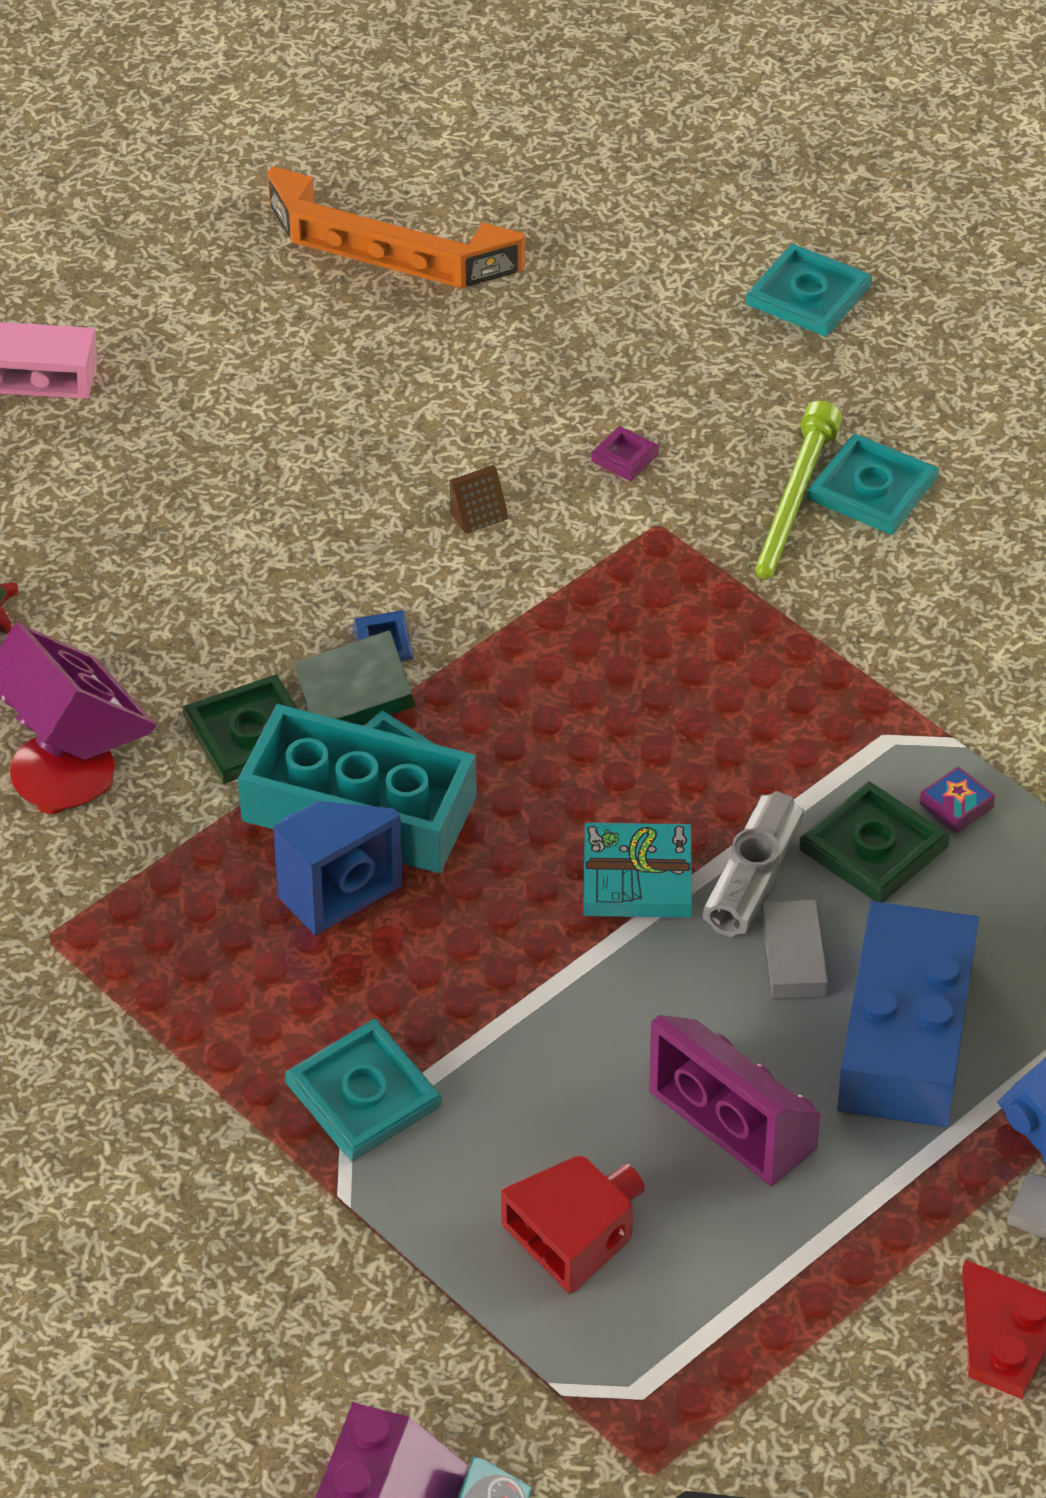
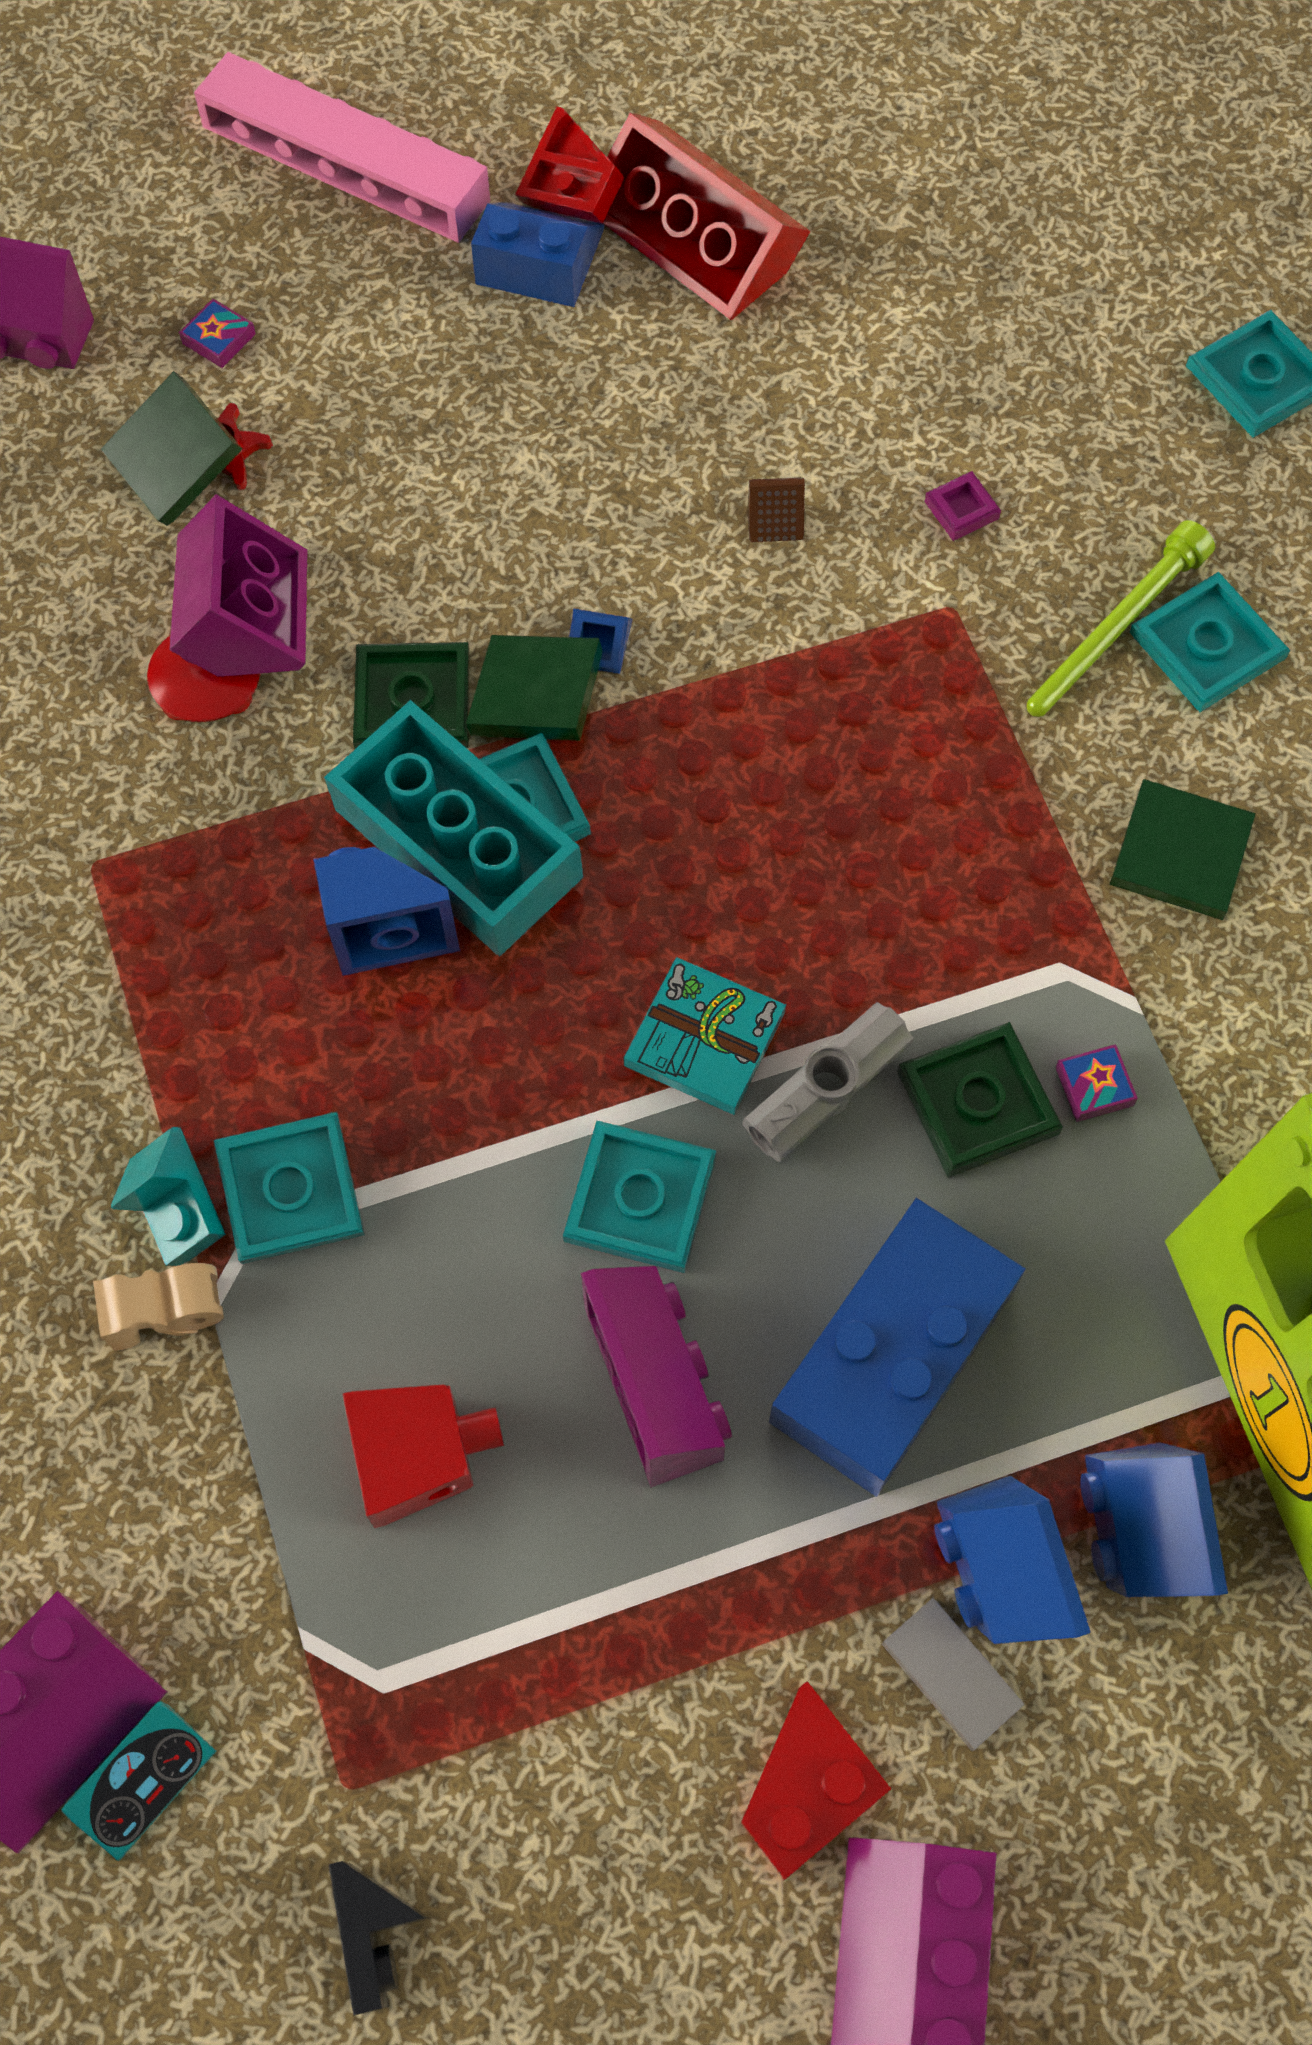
camera: 25 degrees right, 20 degrees up
(164, 314) = (569, 173): none -> red wing
(165, 383) = (534, 252): none -> blue slope
(270, 1133) = (172, 1195): none -> teal slope
(284, 316) = (698, 218): none -> red slope
(319, 1194) = (167, 1301): none -> tan leg
(488, 256) = (936, 216): orange slope -> none
(638, 986) = (640, 1196): none -> teal tile
(794, 949) = (823, 1200): light grey tile -> none
(932, 627) = (1182, 849): none -> dark green tile

